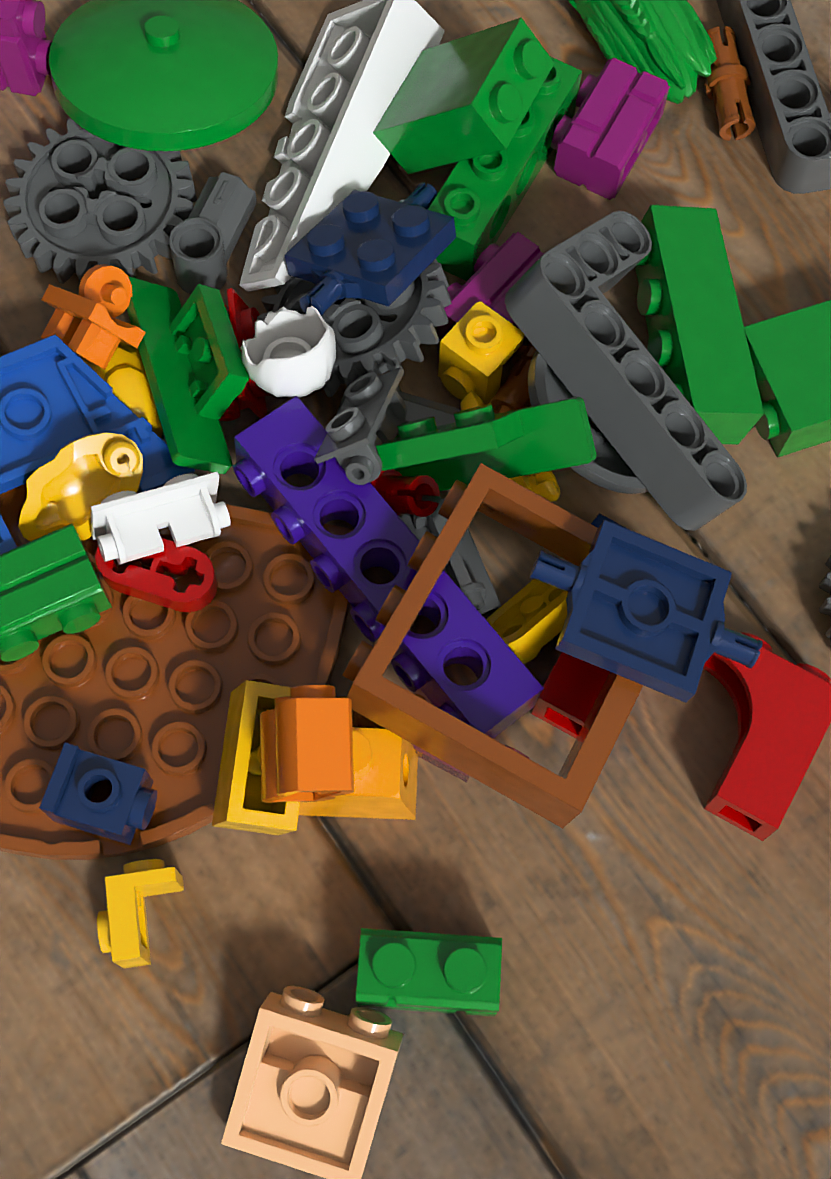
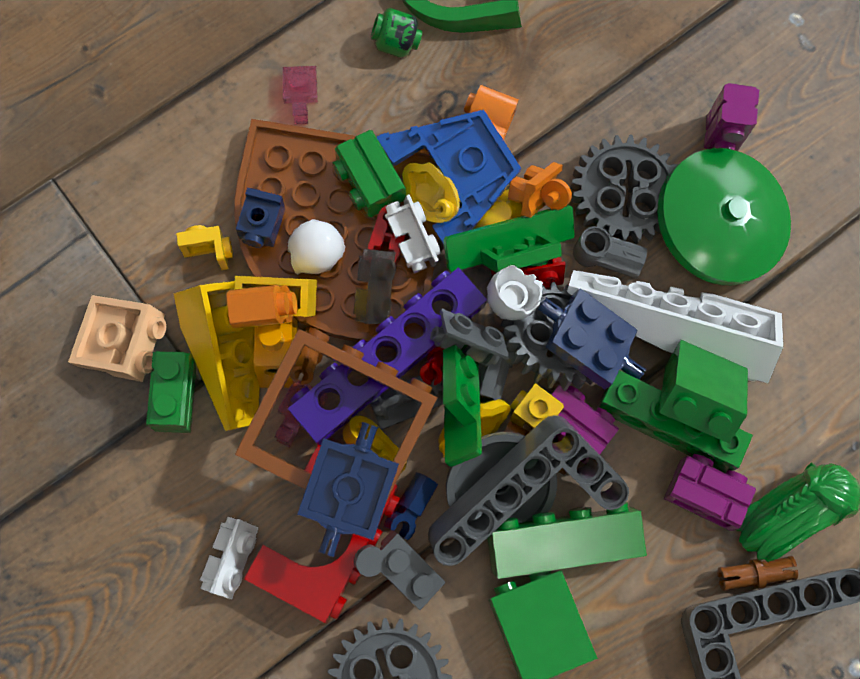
camera: 85 degrees right, 5 degrees up
(166, 695) = (315, 247): none -> white hair
(278, 593) = (374, 303): none -> clear smoke hinge
(328, 881) = (220, 352): none -> yellow wedge
(755, 876) = (225, 574): none -> white hinge
(758, 559) = (401, 567): none -> dark grey hinge

